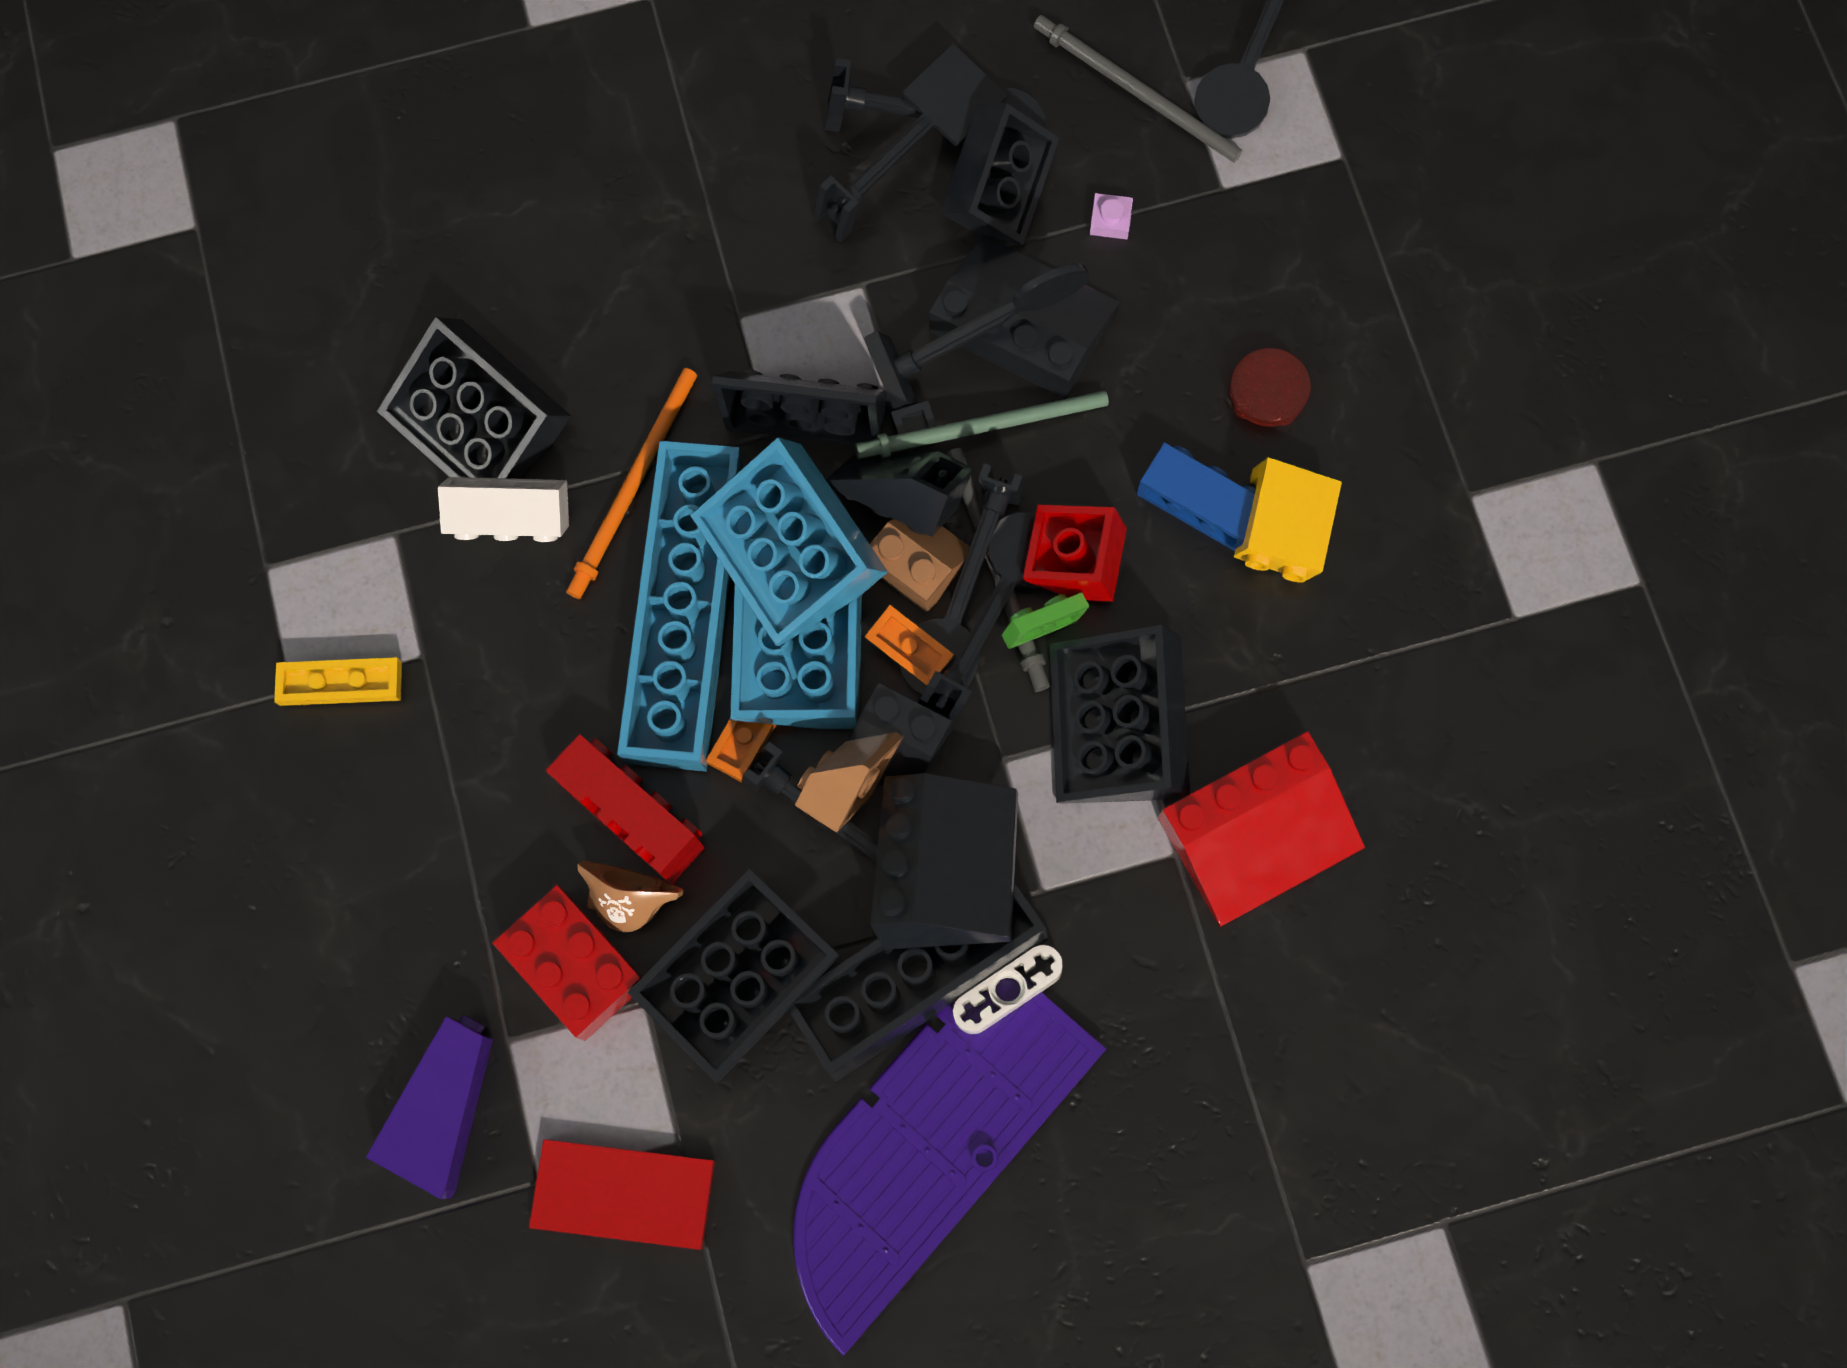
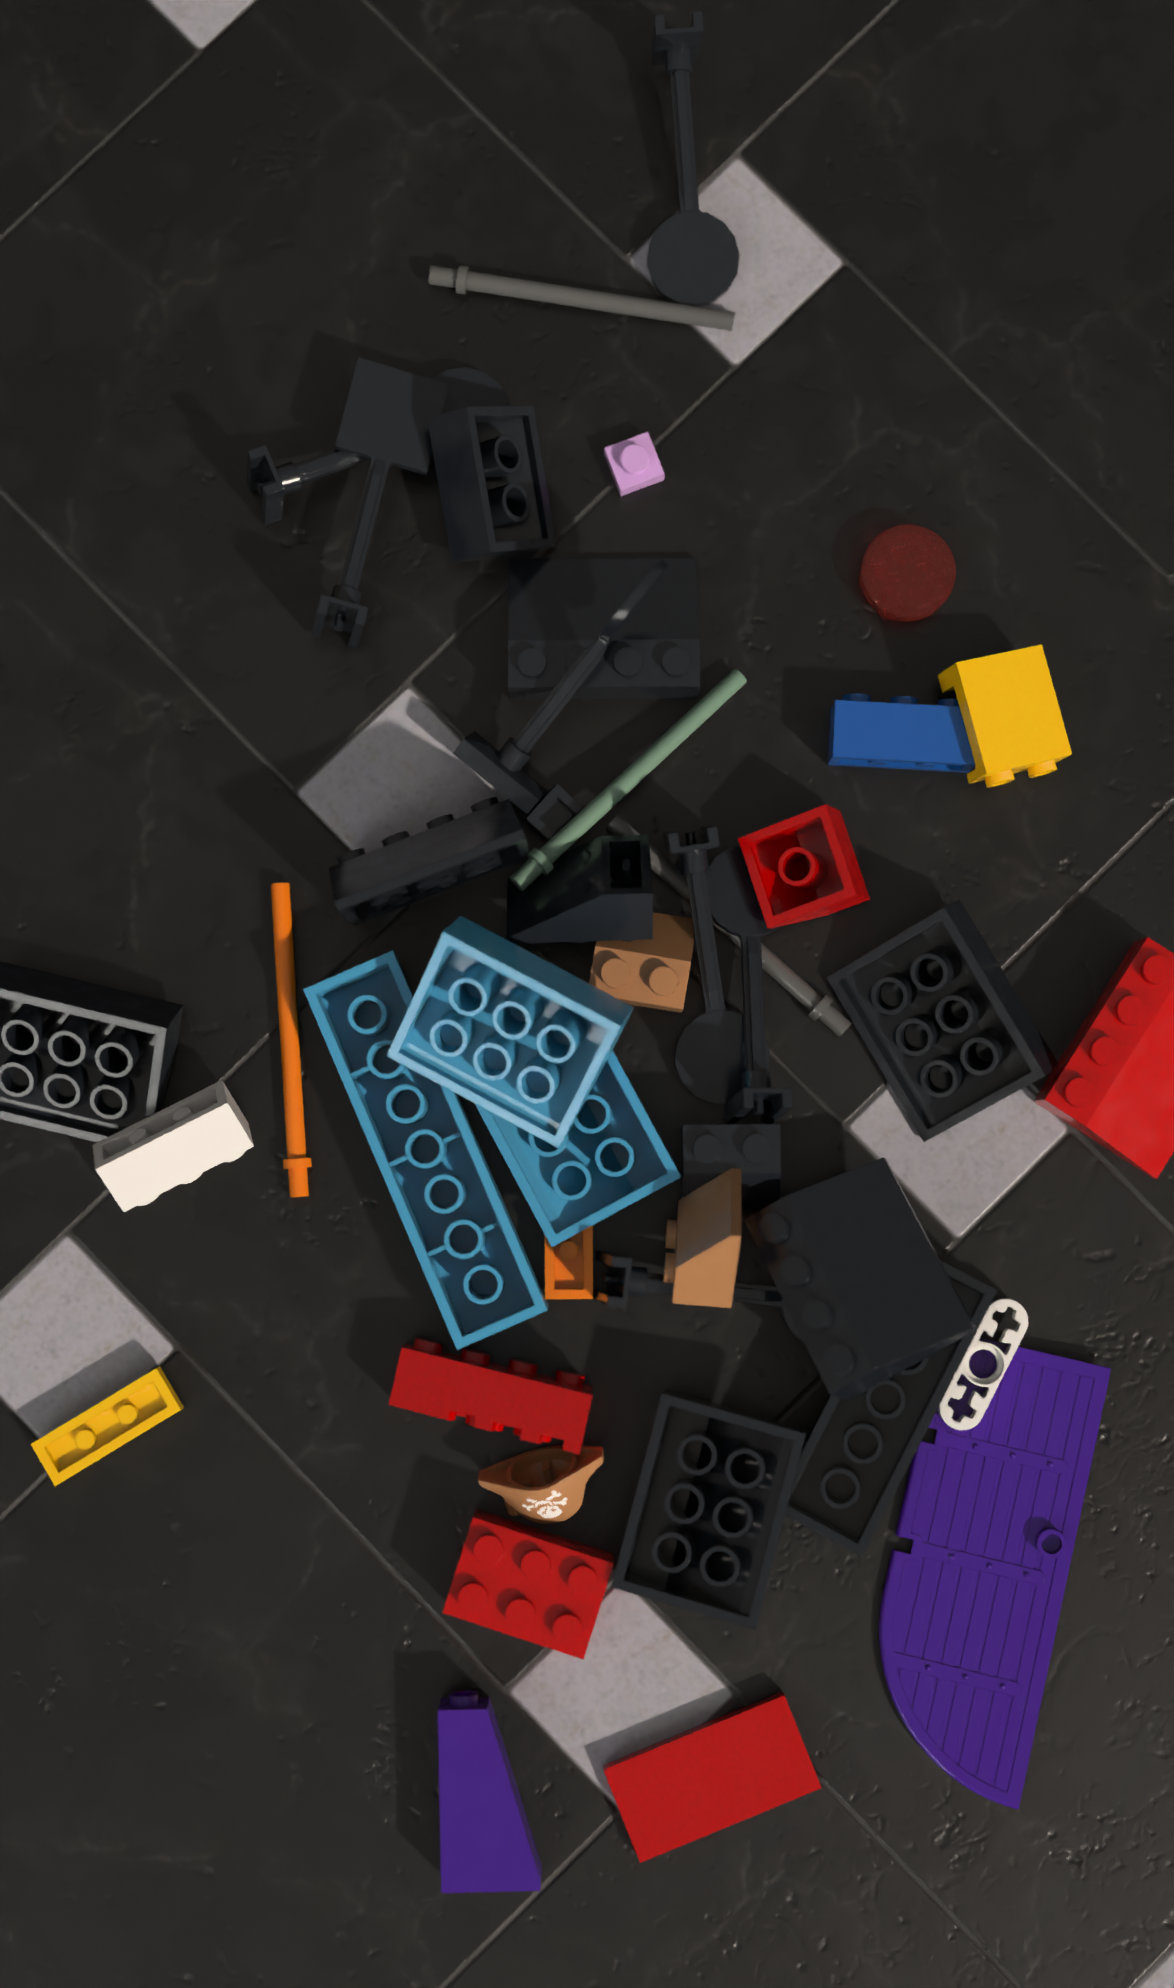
camera: 30 degrees left, 10 degrees up
(909, 645) = (689, 1064): orange plate -> none
(1056, 614) = (800, 974): bright green plate -> none

